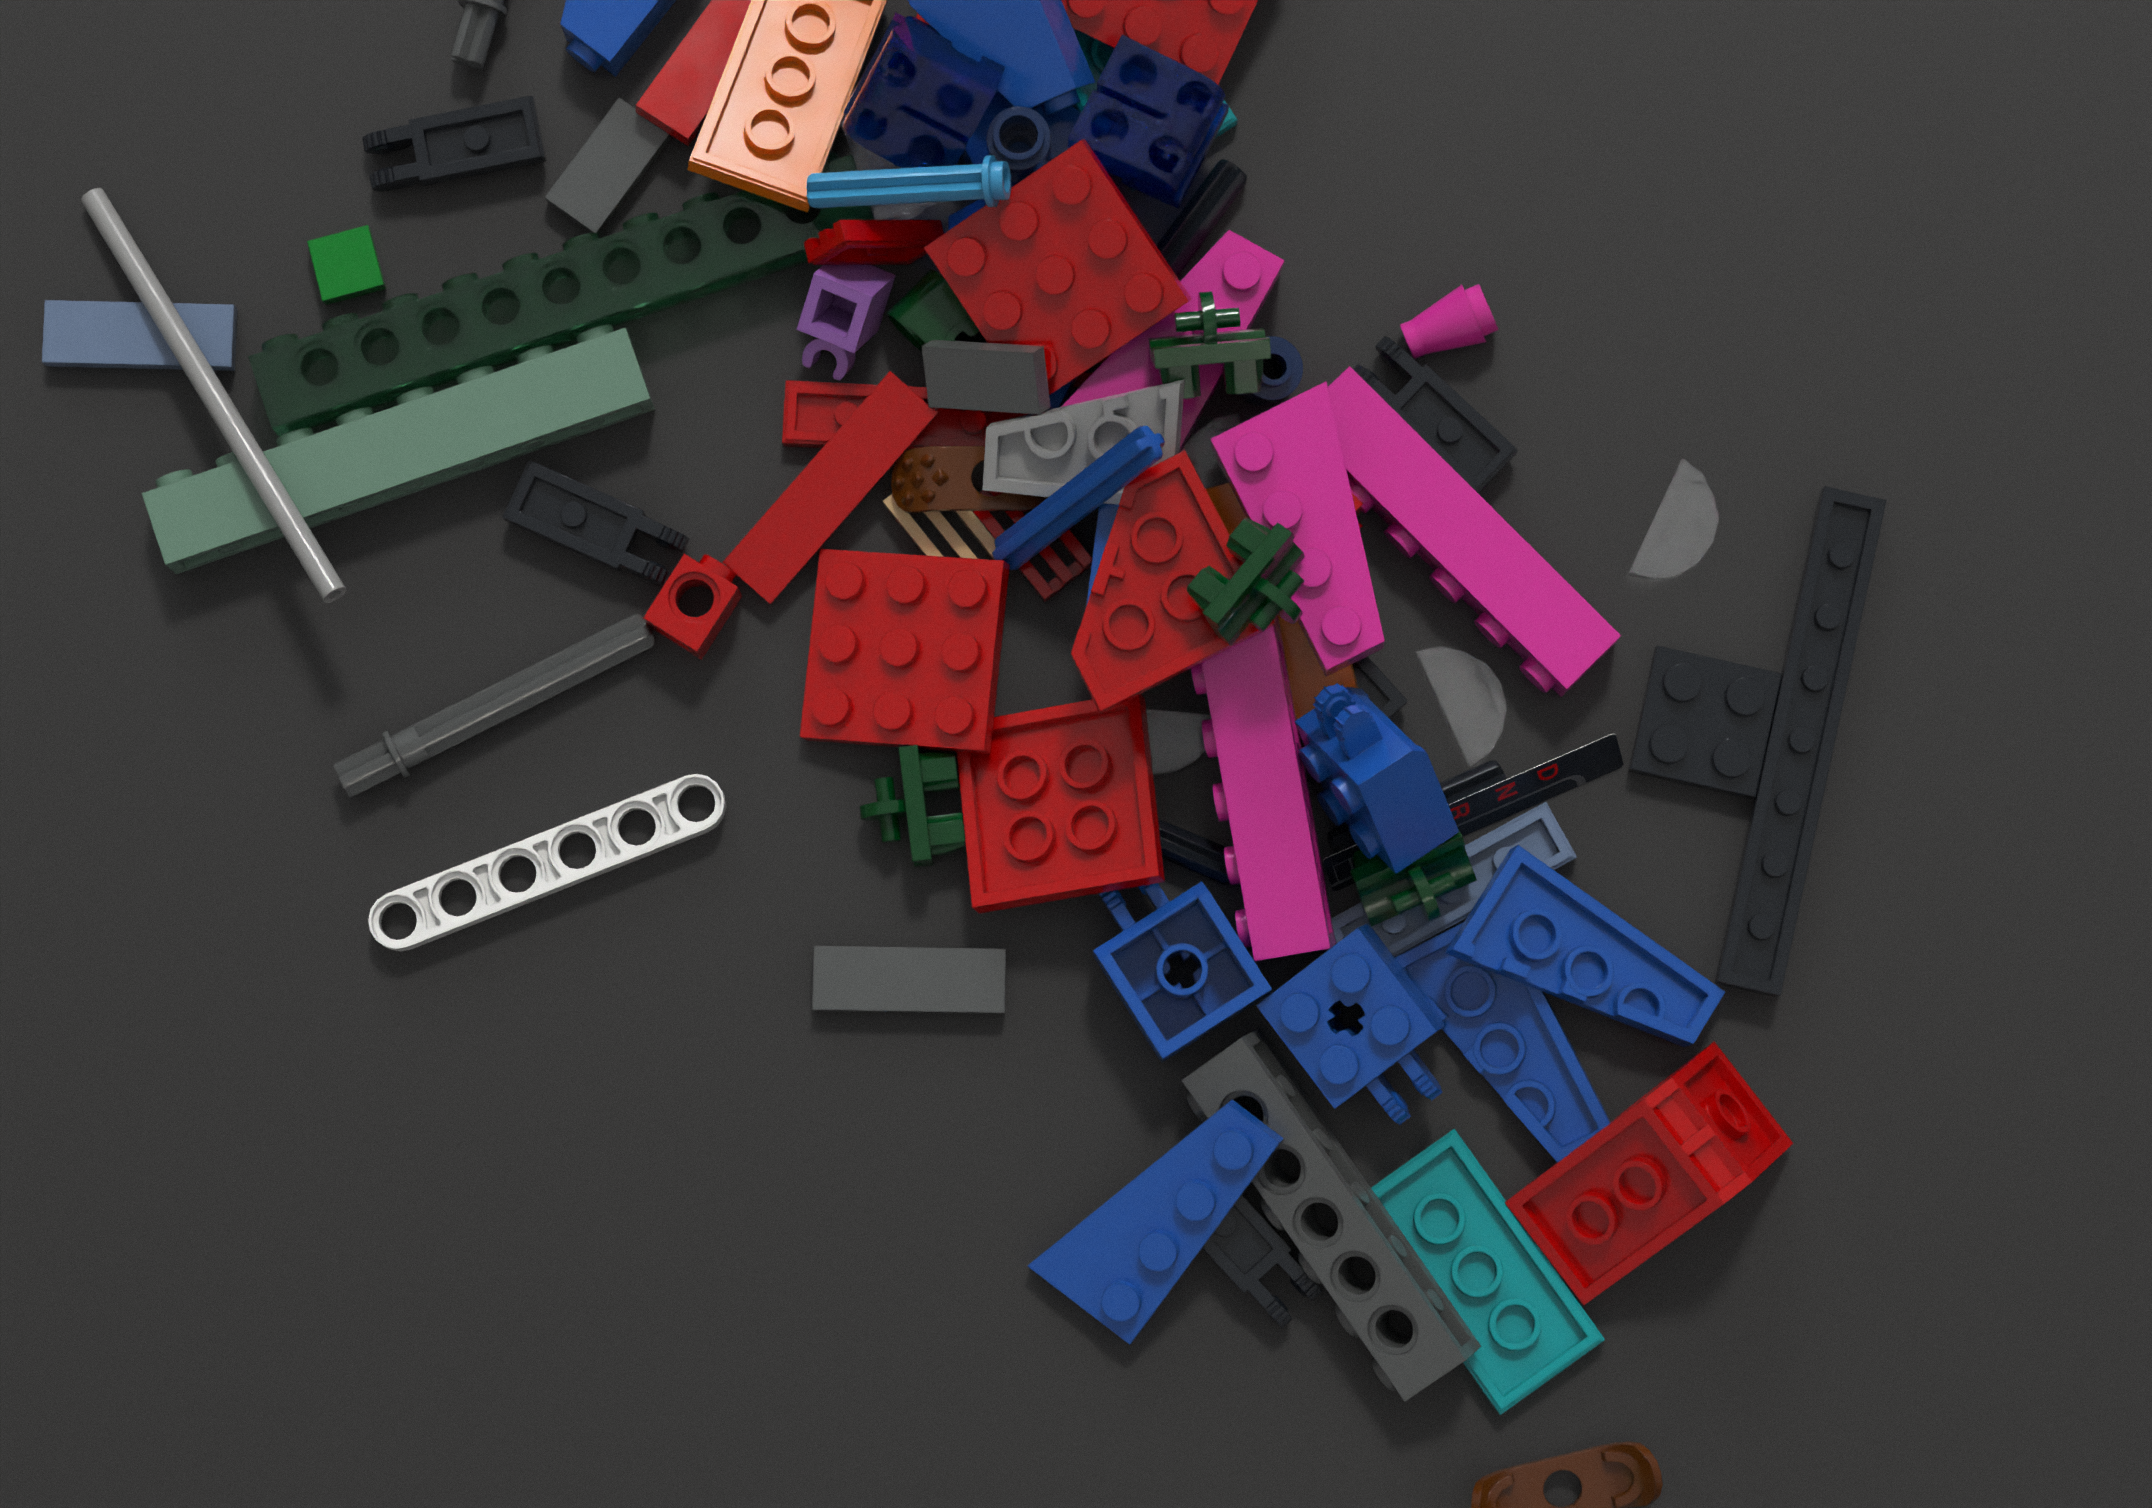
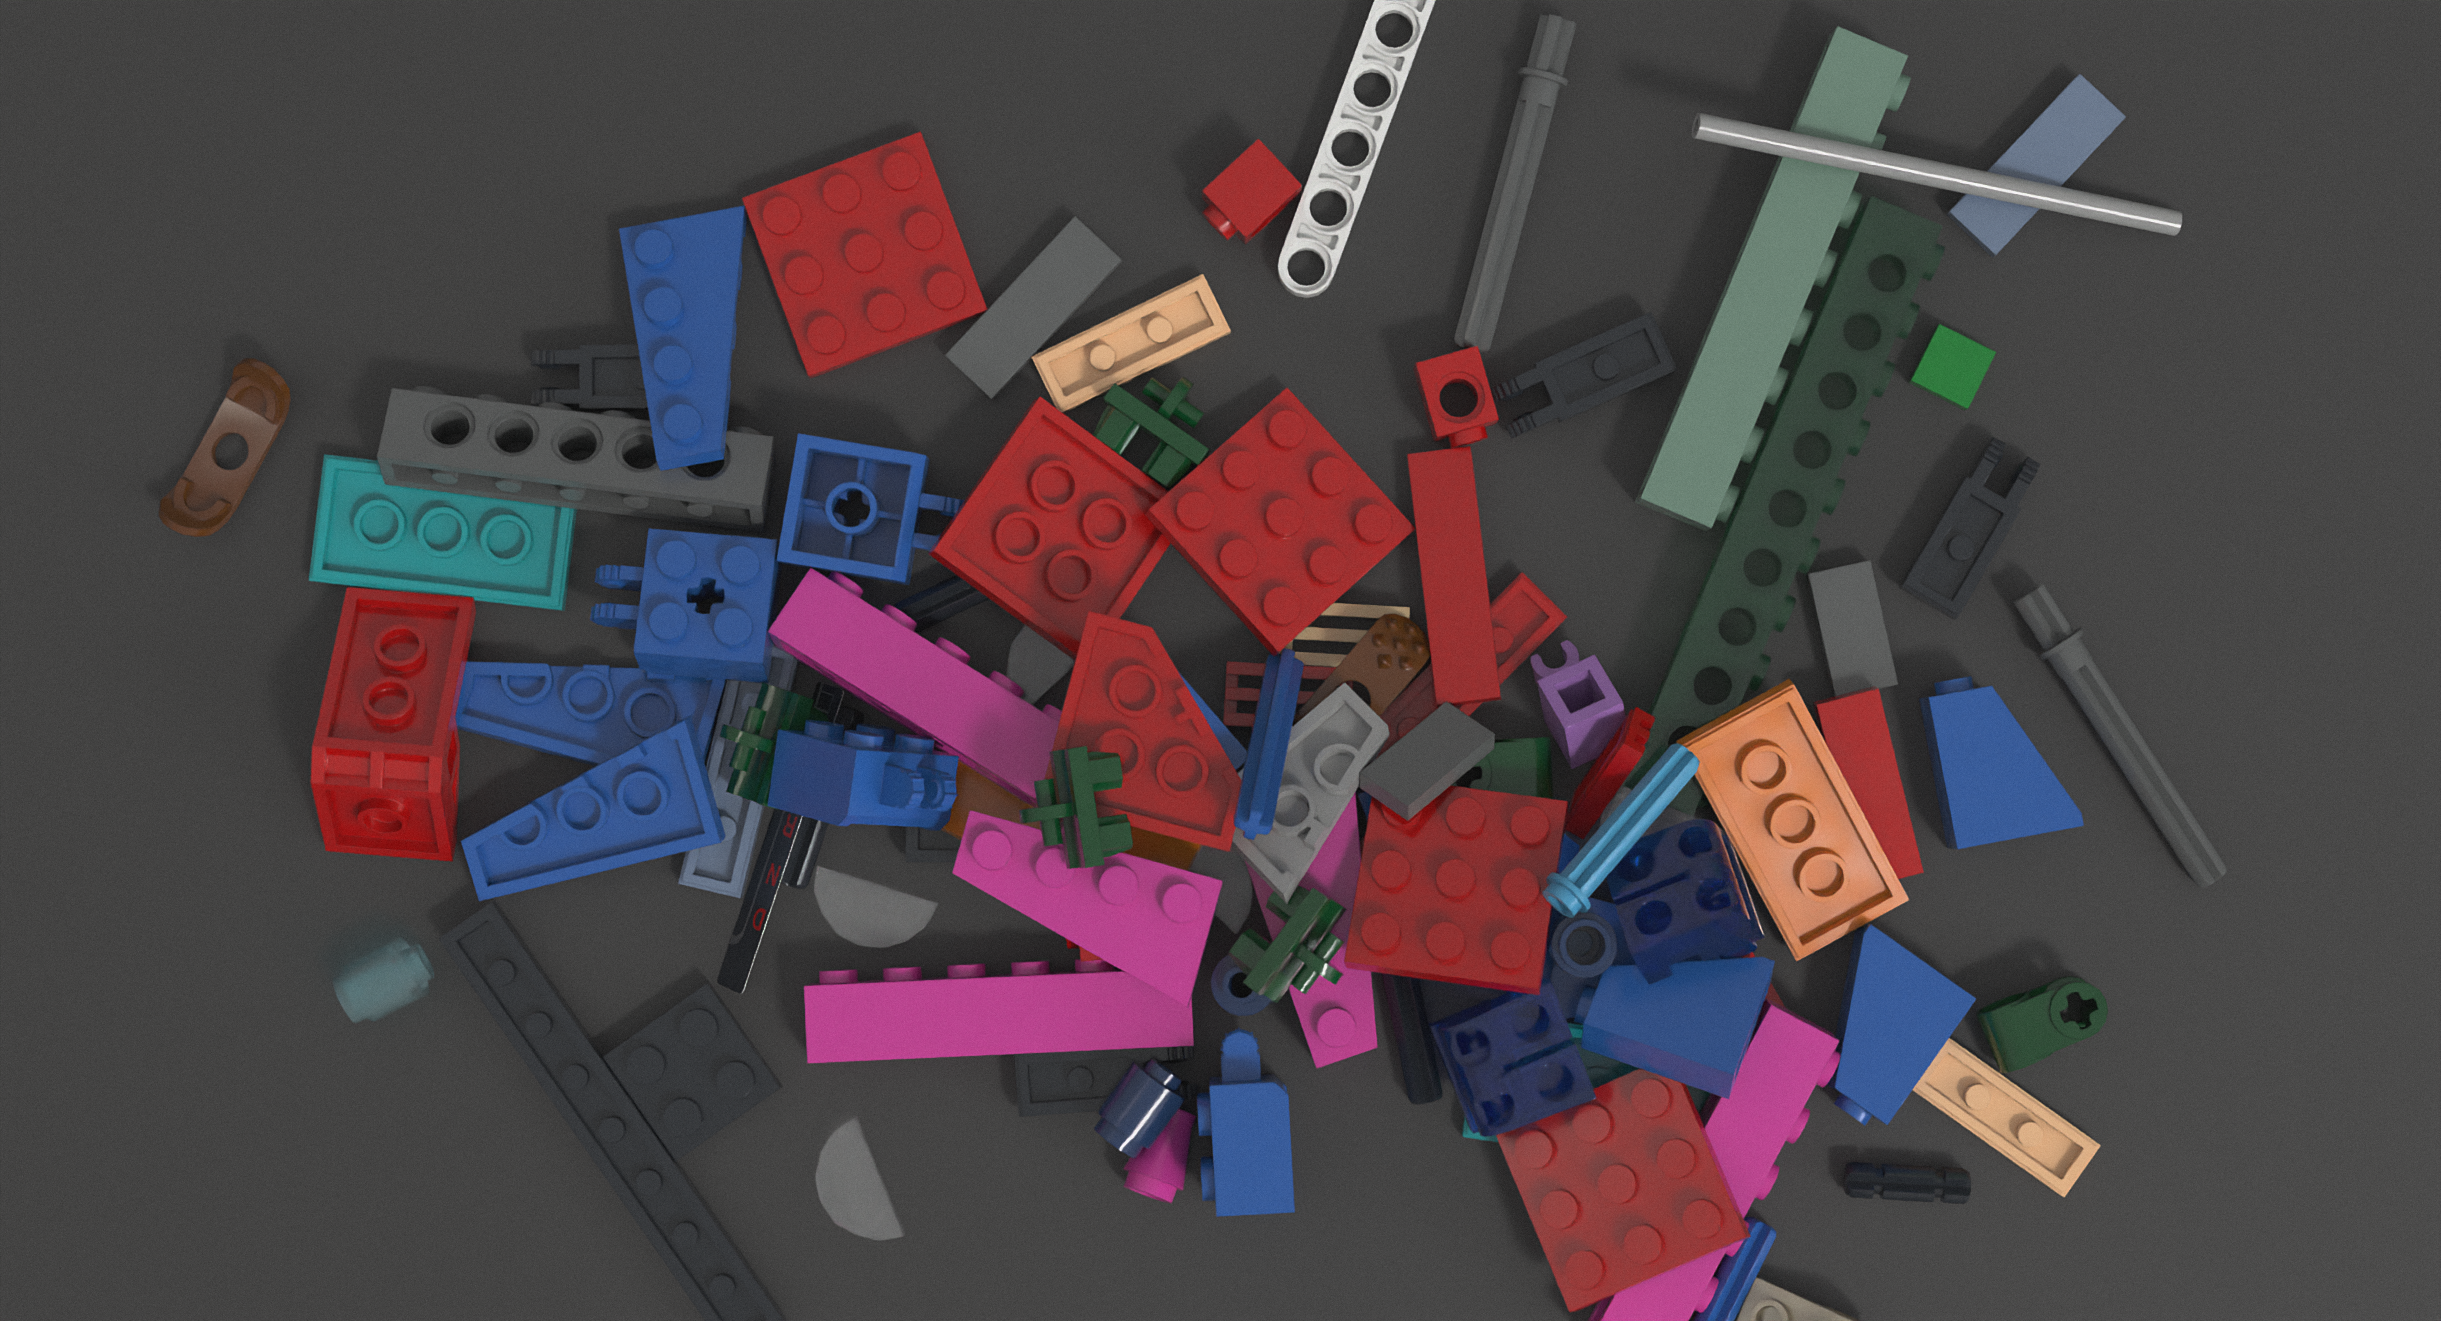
camera: 130 degrees right, 5 degrees up
(679, 892) = (1249, 194): none -> red brick
(871, 883) = (1131, 344): none -> light nougat tile
(982, 1142) = (865, 255): none -> red plate
(1378, 266) = (1249, 1134): none -> blue hinge
(1430, 363) = (1140, 1107): none -> dark blue brick
(1848, 1008) = (384, 981): none -> clear light blue brick

